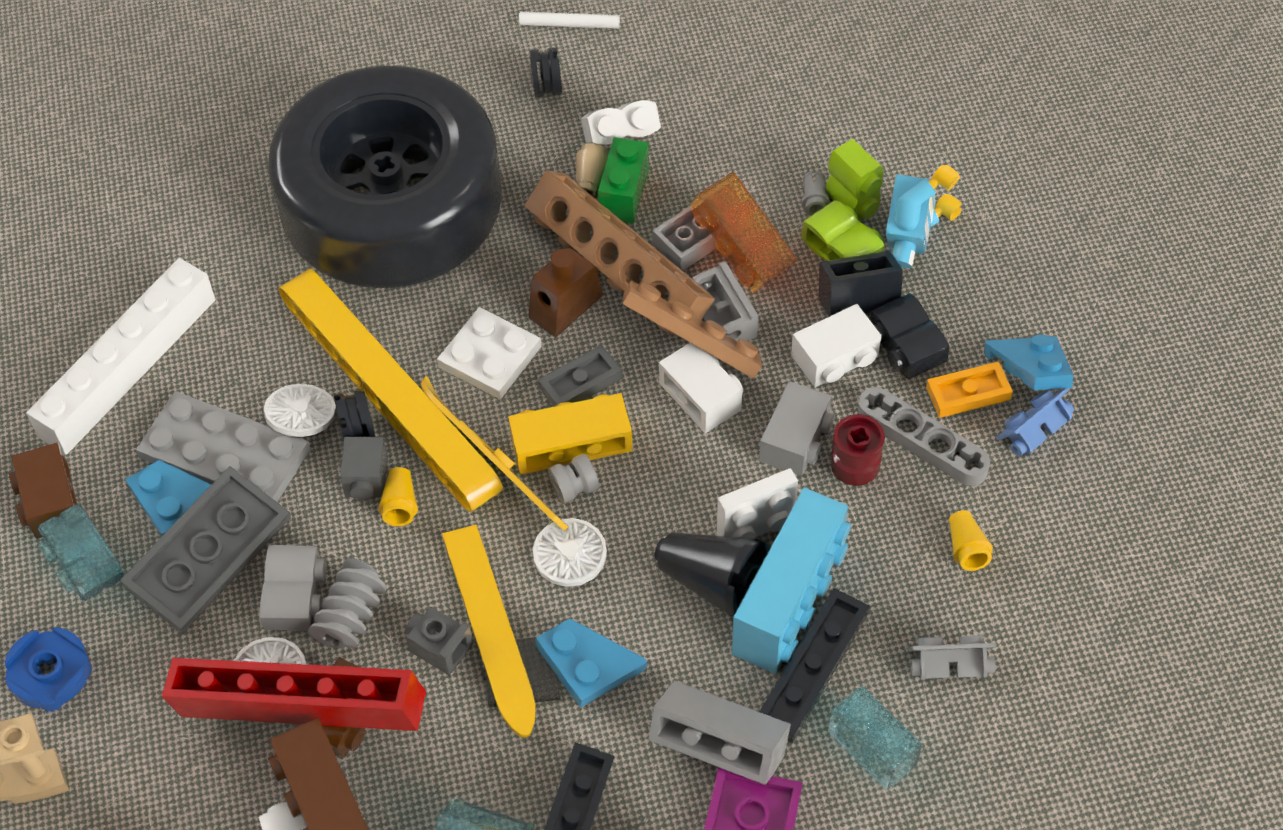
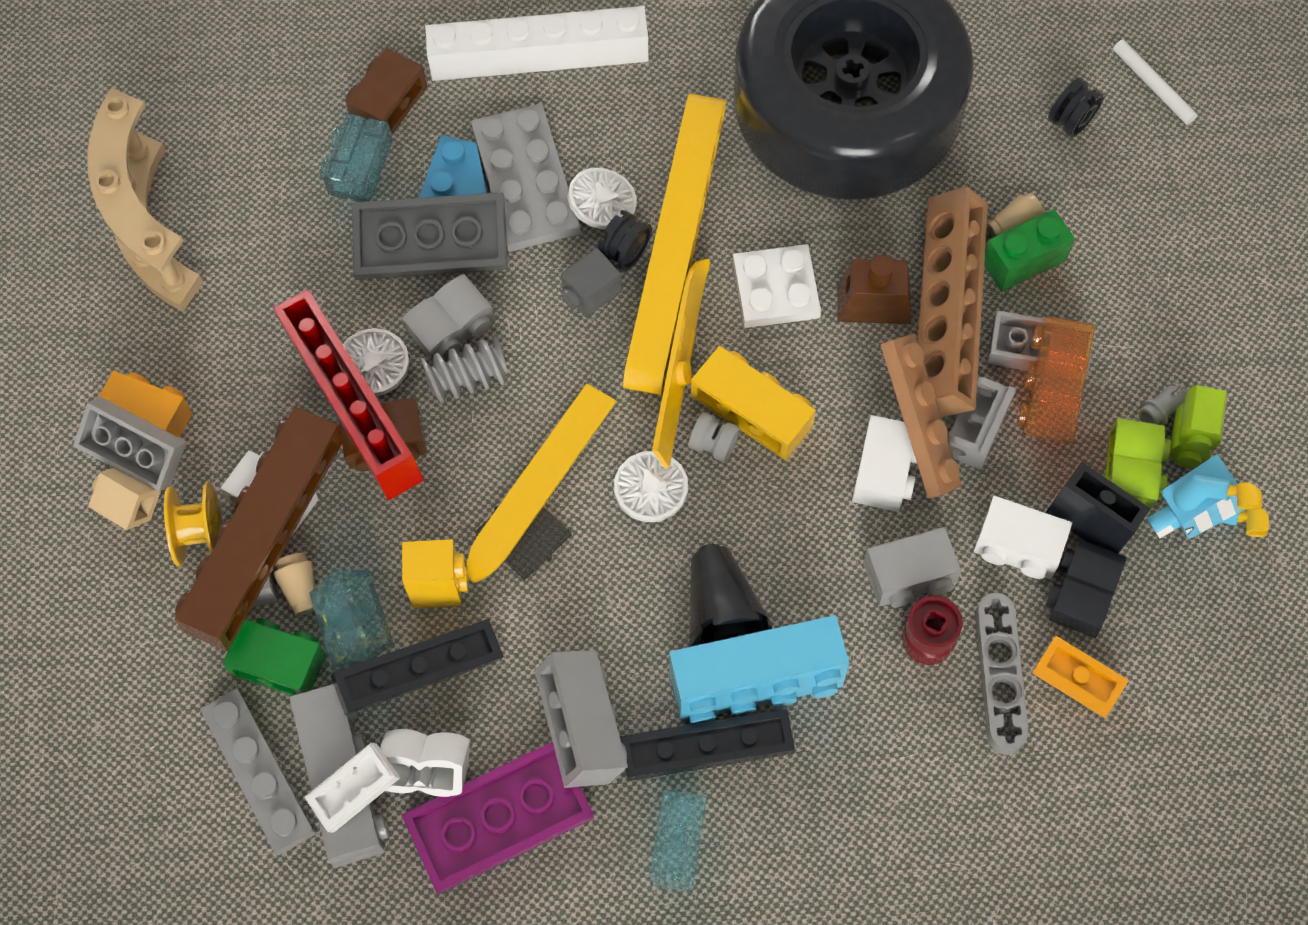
camera: 50 degrees right, 10 degrees up
(60, 685) = (260, 236): blue plate -> none
(398, 498) = (588, 328): yellow cone -> none
(439, 650) = (494, 465): dark grey brick -> none
(504, 749) = (433, 573): none -> yellow brick
(581, 377) = (811, 369): dark grey plate -> none
(587, 661) = (567, 573): dark azure wing -> none
(628, 120) = (1072, 197): white brick -> none
(757, 506) = (796, 592): white plate -> none
(969, 542) = (927, 785): yellow cone -> none
(969, 656) = (820, 859): light grey hinge -> none
(1025, 428) = (1117, 756): medium blue hinge -> none
(1034, 360) = (1157, 709): dark azure wing -> none

